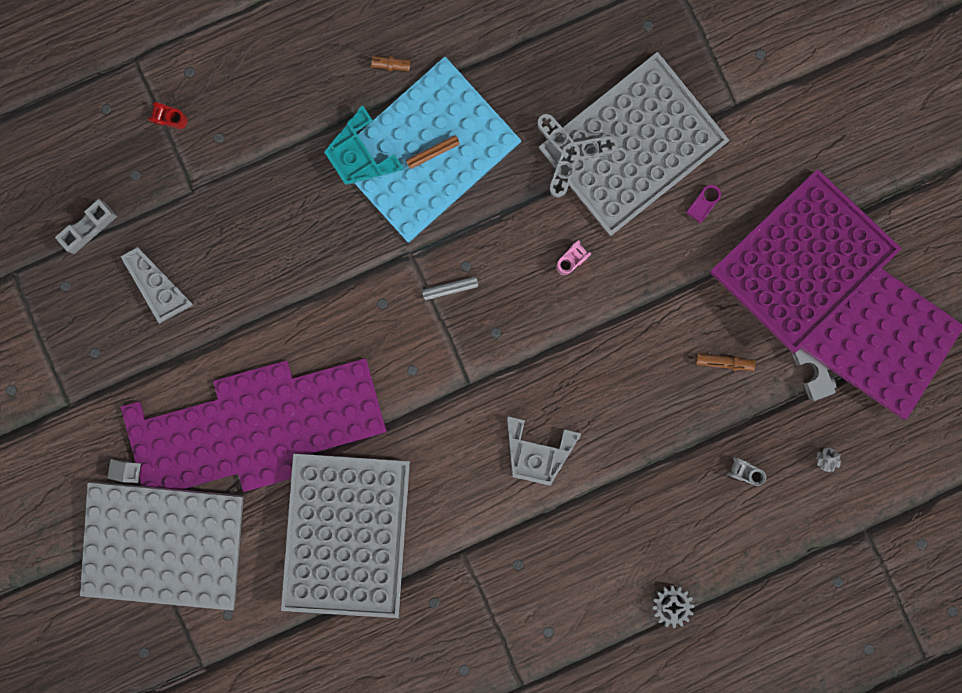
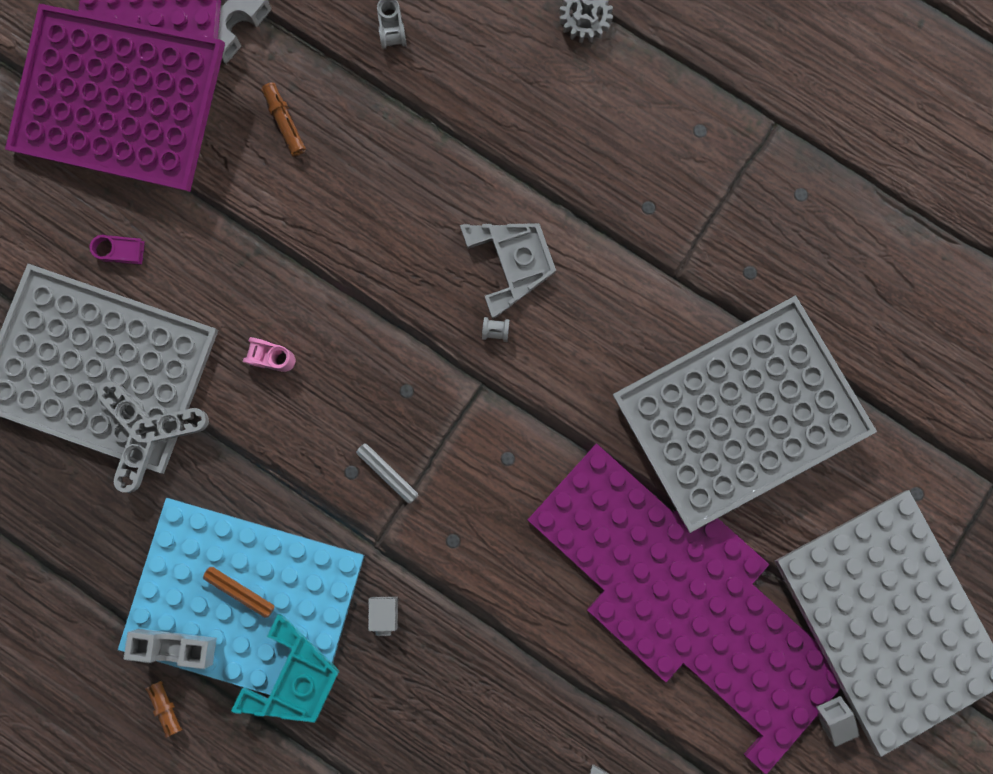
camera: 115 degrees left, 5 degrees down
(363, 232) = (383, 615): none -> light grey brick
(426, 89) = (166, 646): none -> light grey arch
(498, 414) = (500, 332): none -> light grey bush

